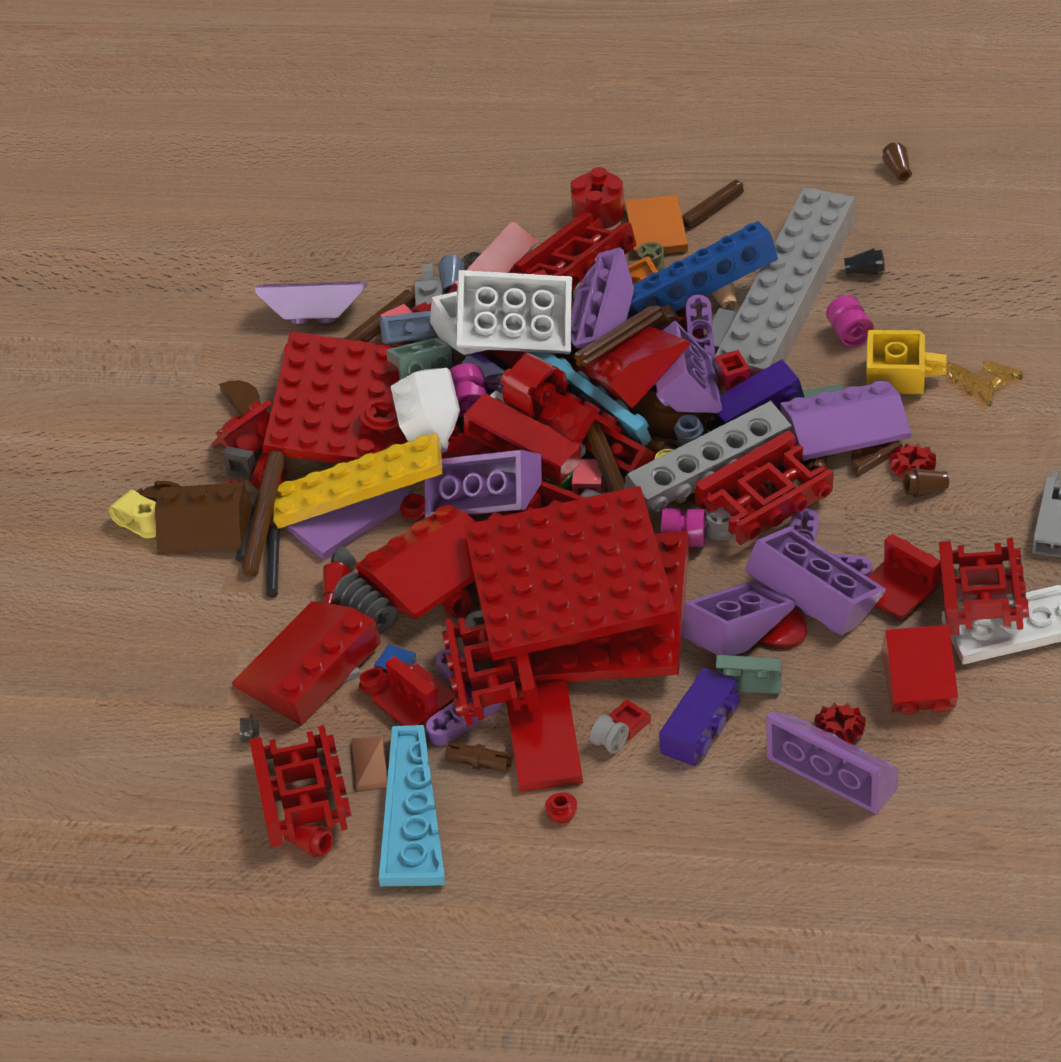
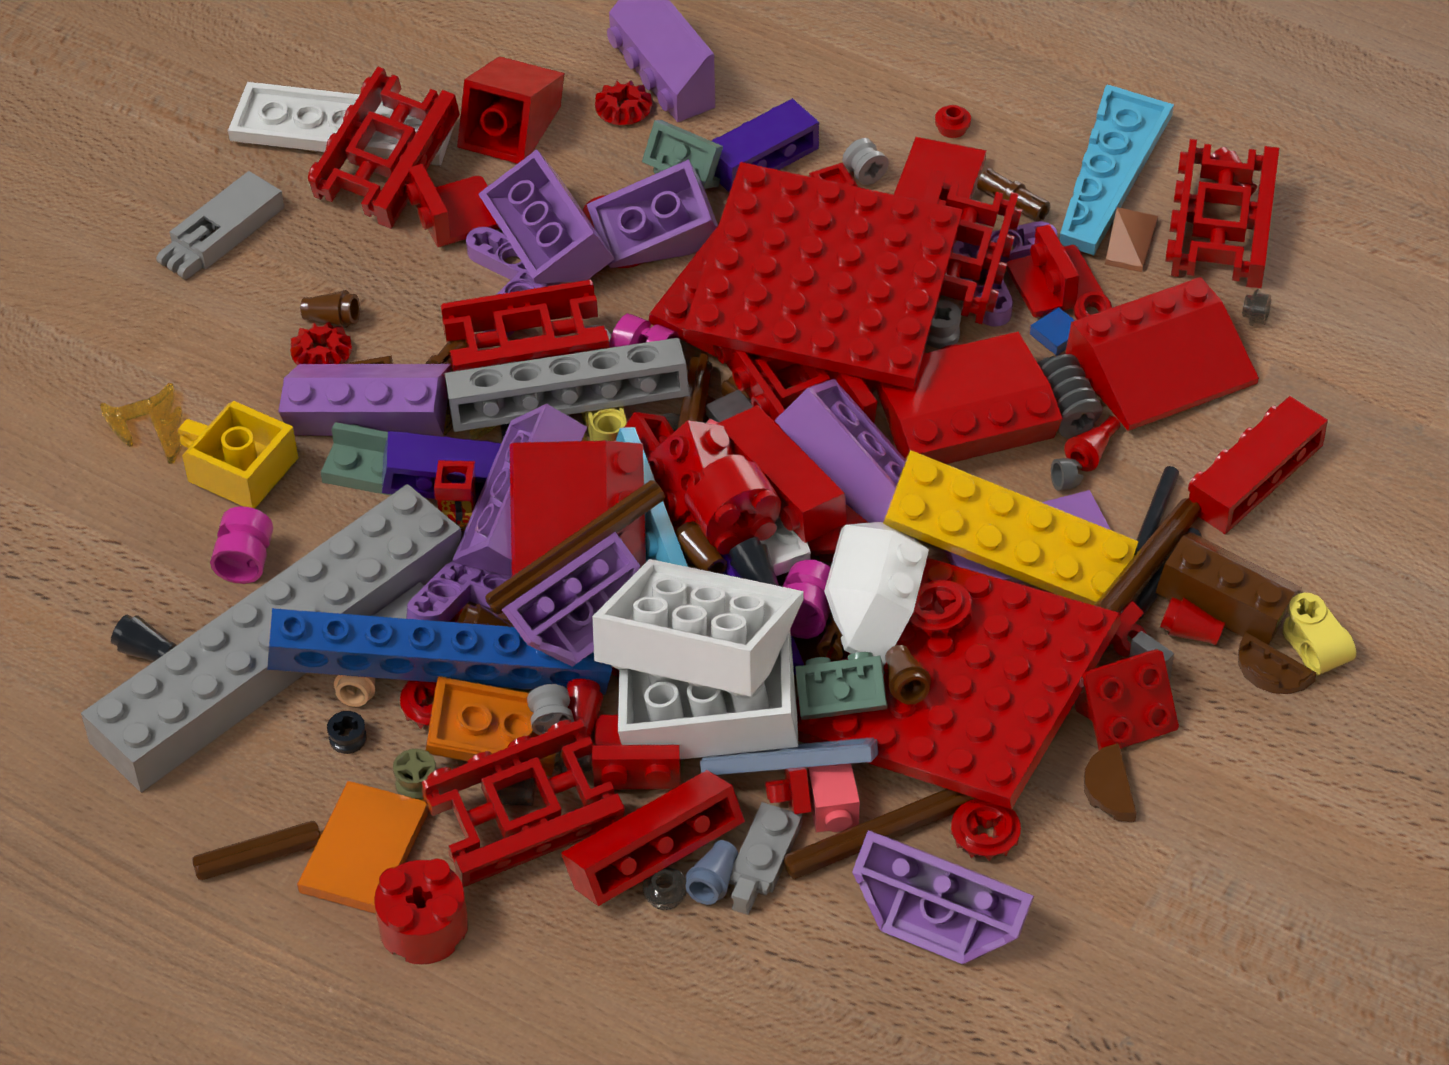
camera: 160 degrees left, 5 degrees up
(210, 608) = (1257, 463): none -> red brick
(381, 368) = (907, 677): none -> reddish brown cone

